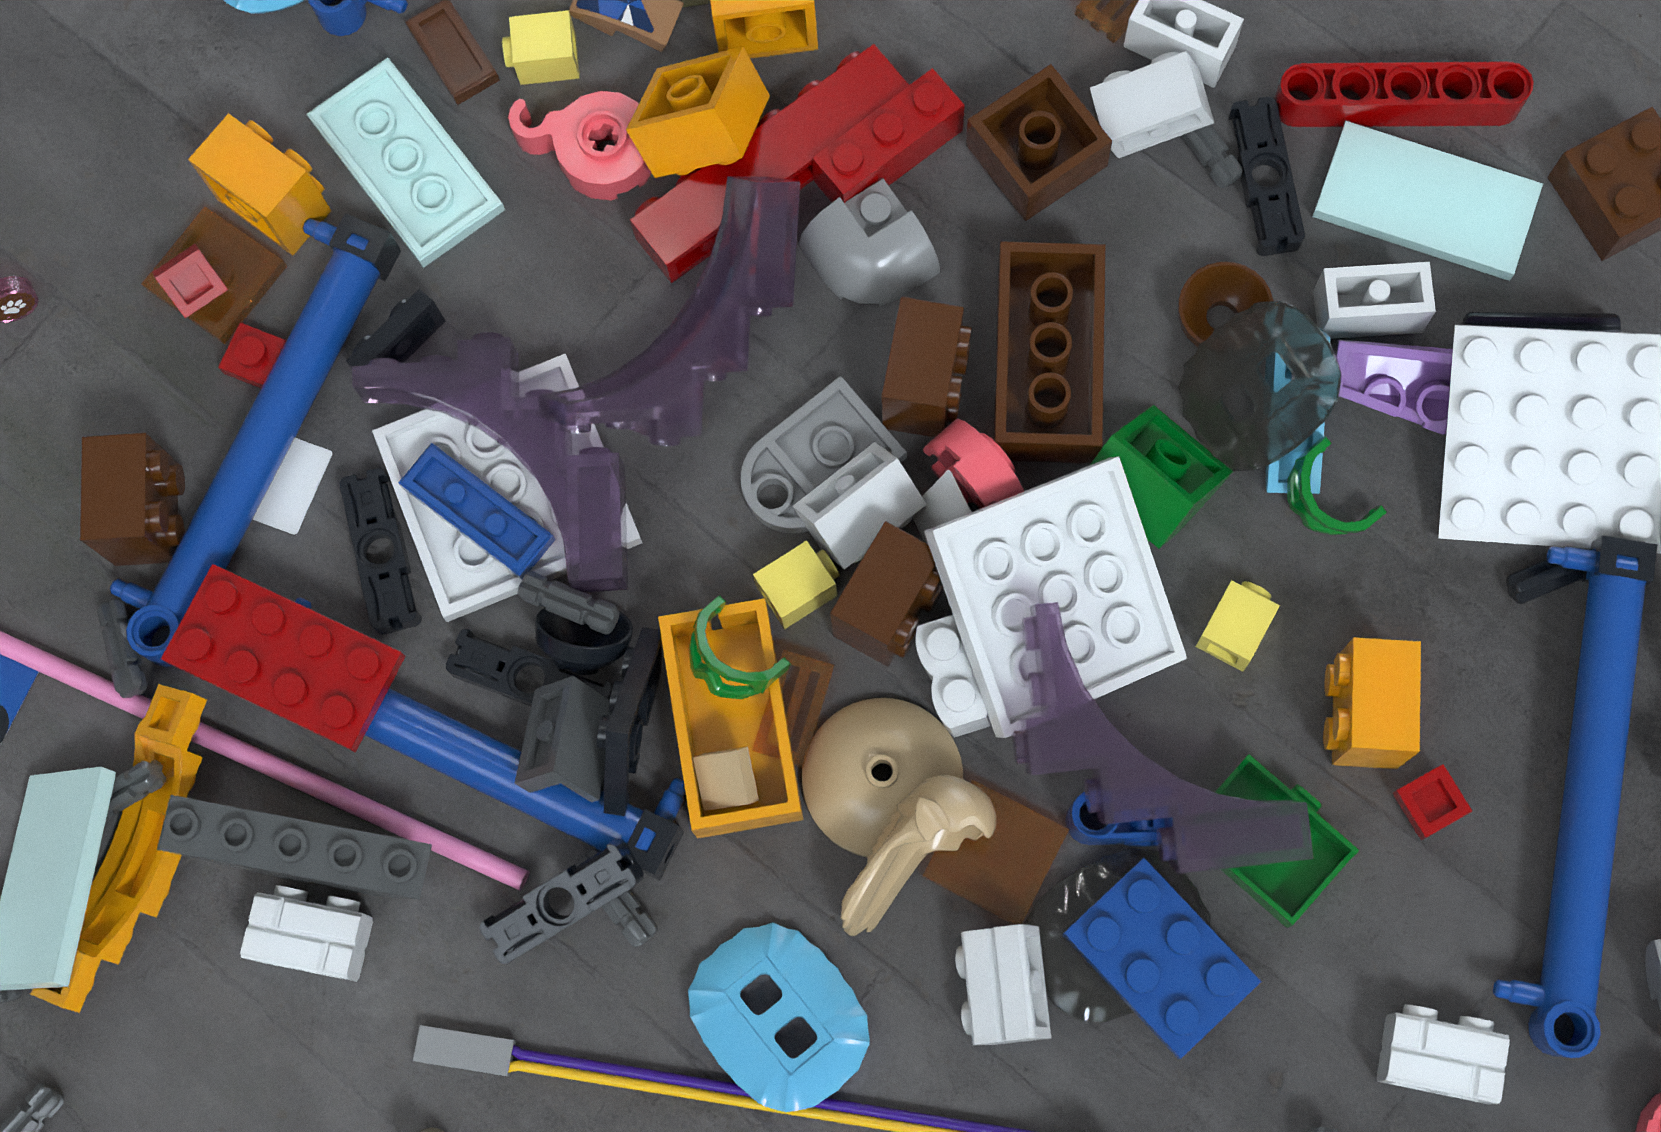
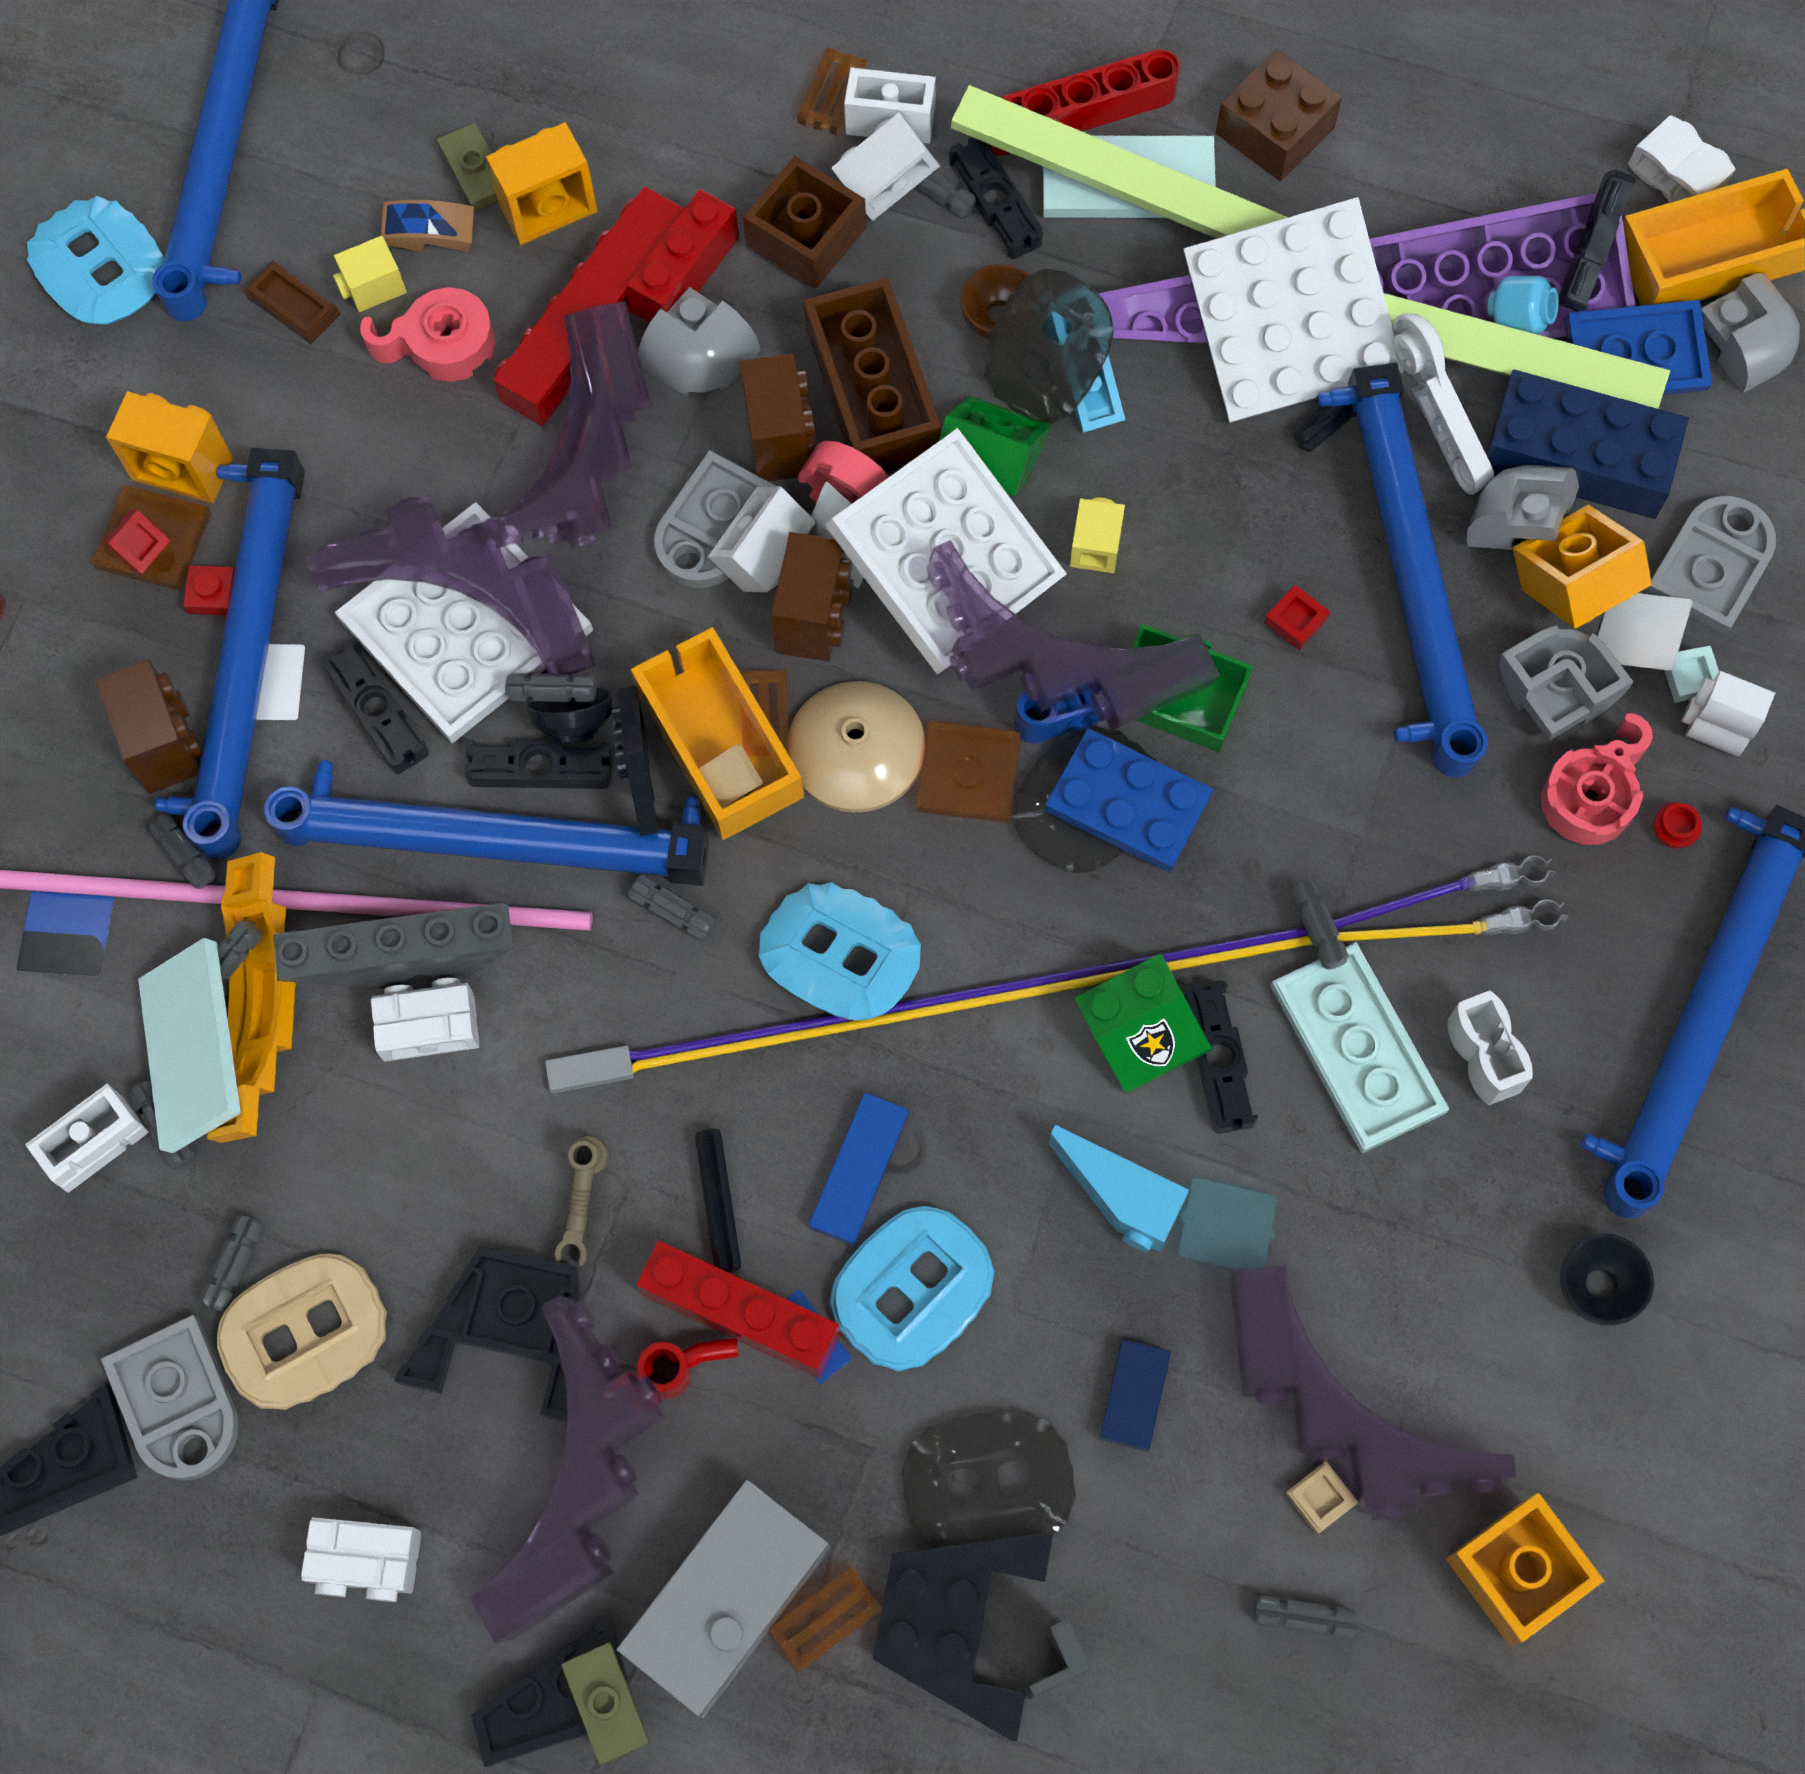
camera: 25 degrees left, 5 degrees down
(283, 657) = (327, 804): red plate -> none
(402, 334) = (334, 525): black plate -> none
(405, 162) = (283, 399): light aqua tile -> none
(477, 511) = (447, 644): blue tile -> none
(563, 739) = (587, 789): dark grey panel -> none
(591, 886) = (651, 896): piece -> none
(698, 113) = (521, 278): light orange brick -> none
(711, 671) = (731, 685): green helmet -> none
(797, 583) = (735, 615): light yellow brick -> none
(928, 820) = (906, 756): tan hair -> none
(953, 680) = (885, 644): white brick -> none
(1003, 985) = (1012, 863): white brick -> none
(1303, 503) = (1124, 430): green helmet -> none
(1374, 300) = (1117, 255): white brick -> none
(1374, 703) = (1225, 553): light orange brick -> none
(1411, 194) = (1106, 166): none -> yellowish green tile
(1442, 1056) = (1374, 800): white brick -> none

